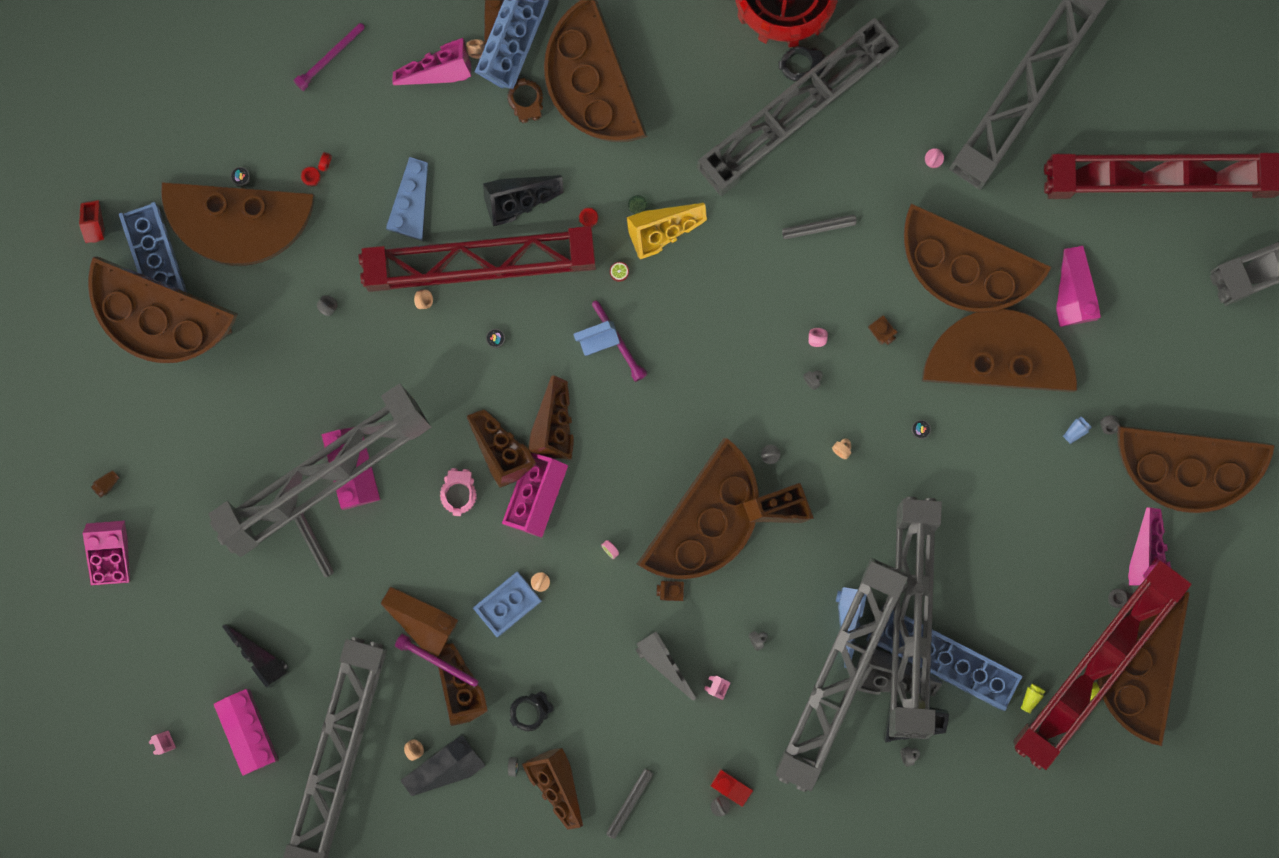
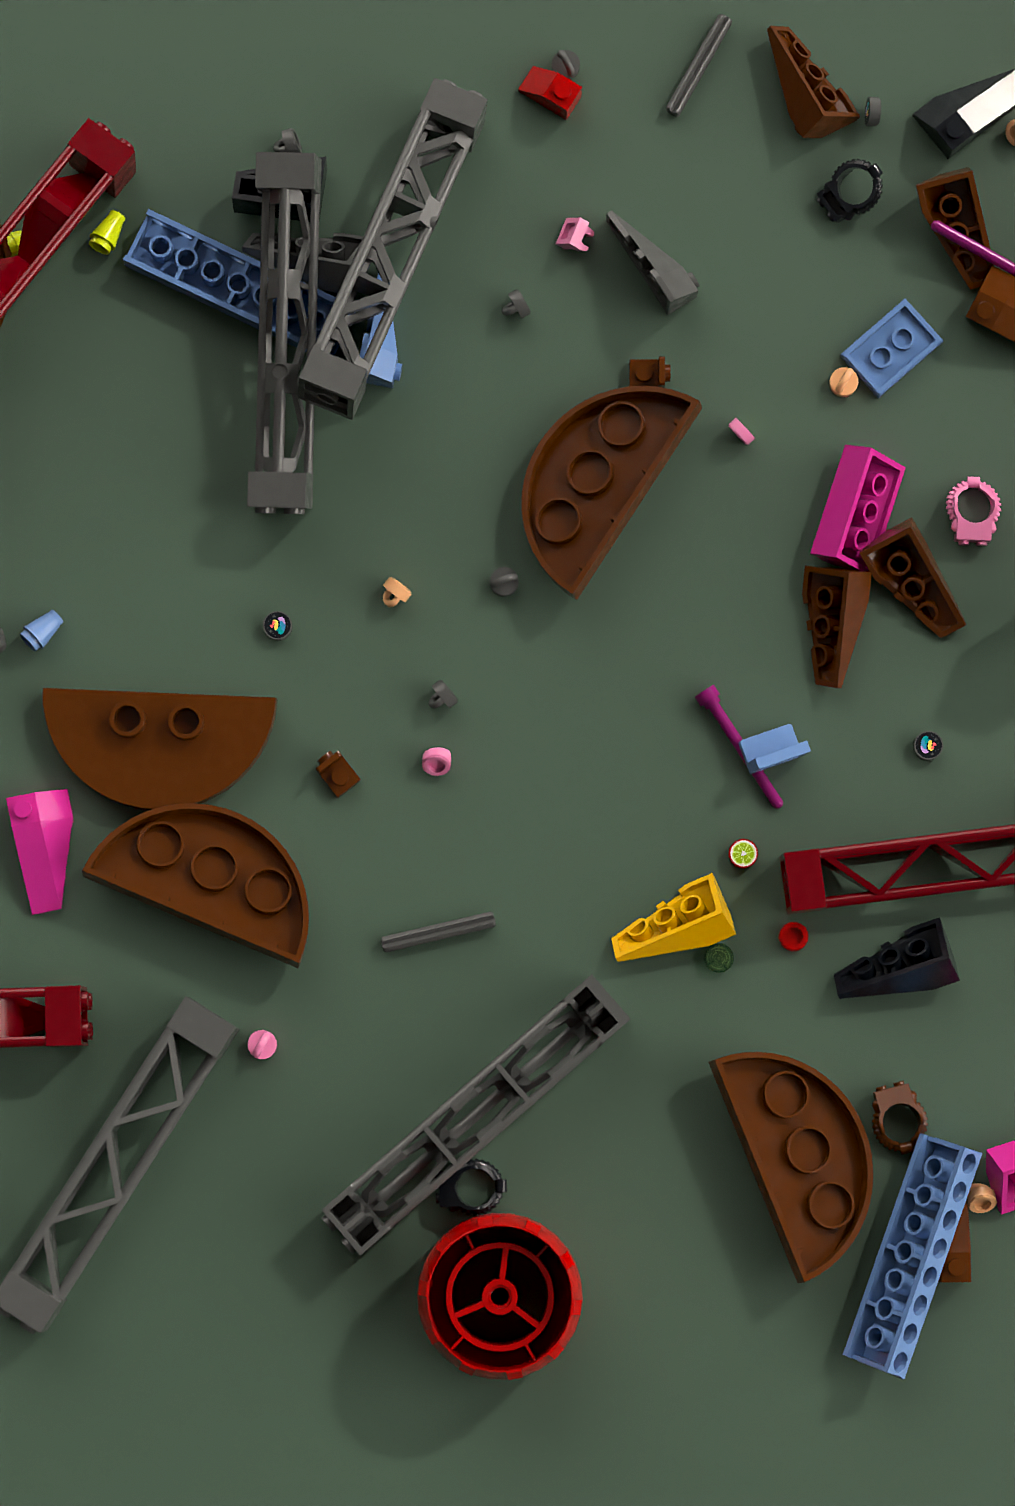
camera: 175 degrees right, 0 degrees up
(782, 506) = (489, 499): reddish brown wedge -> none

